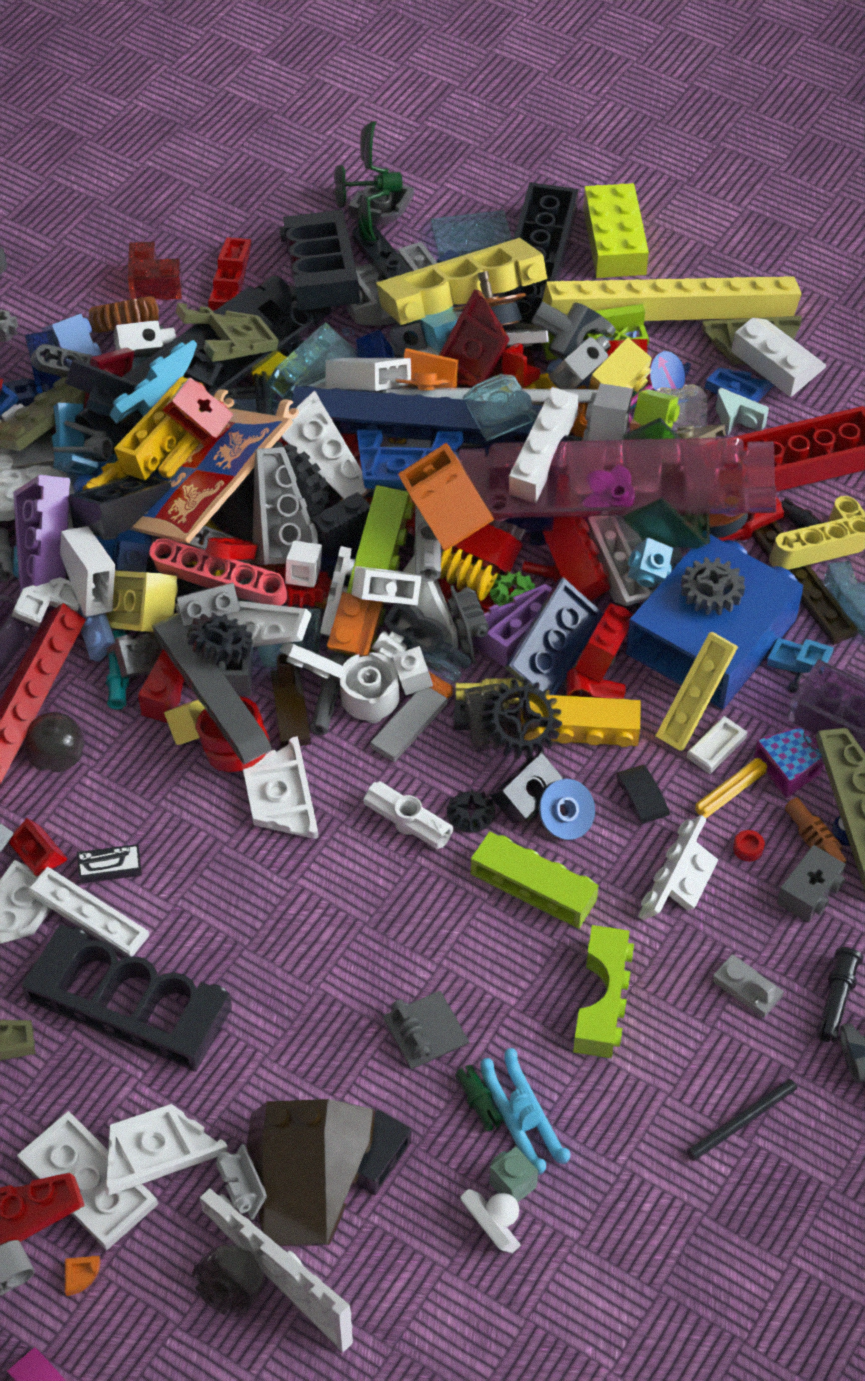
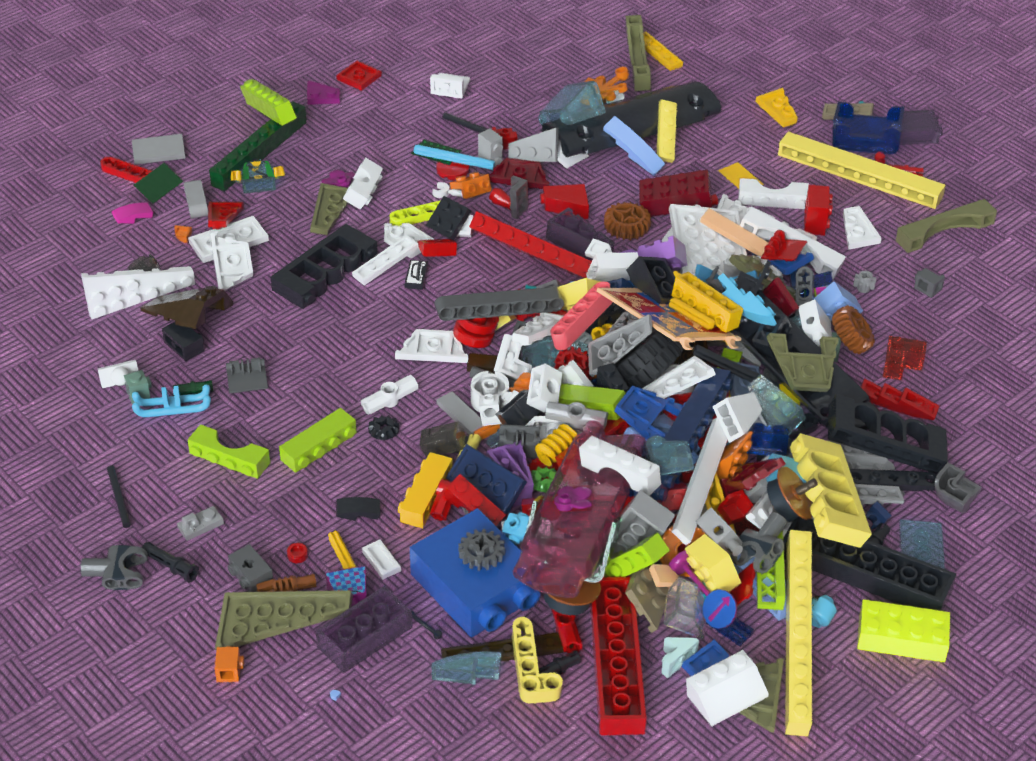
camera: 105 degrees right, 10 degrees down
(54, 742) = (508, 262): clear smoke cylinder -> none
(201, 424) = (703, 306): brick -> none
(215, 600) = (556, 304): light grey hinge -> none
(219, 638) = (531, 300): black gear -> none
(231, 548) = (588, 316): red beam -> none
(243, 1182) = (184, 283): light grey hinge -> none
(303, 564) = (578, 352): white brick -> none
(385, 182) = (980, 470): dark green plant -> none
(424, 381) = (716, 434): orange plate -> none
(446, 496) = (590, 406): orange slope -> none
(510, 719) = (424, 442): black gear -> none
(512, 793) = (382, 448): brick -> none
(578, 809) = (359, 465): medium blue dish -> none
(683, 873) = (288, 512): white bracket -> none
(696, 691) = (410, 534): light yellow plate -> none
(798, 657) = (432, 620): dark azure slope -> none

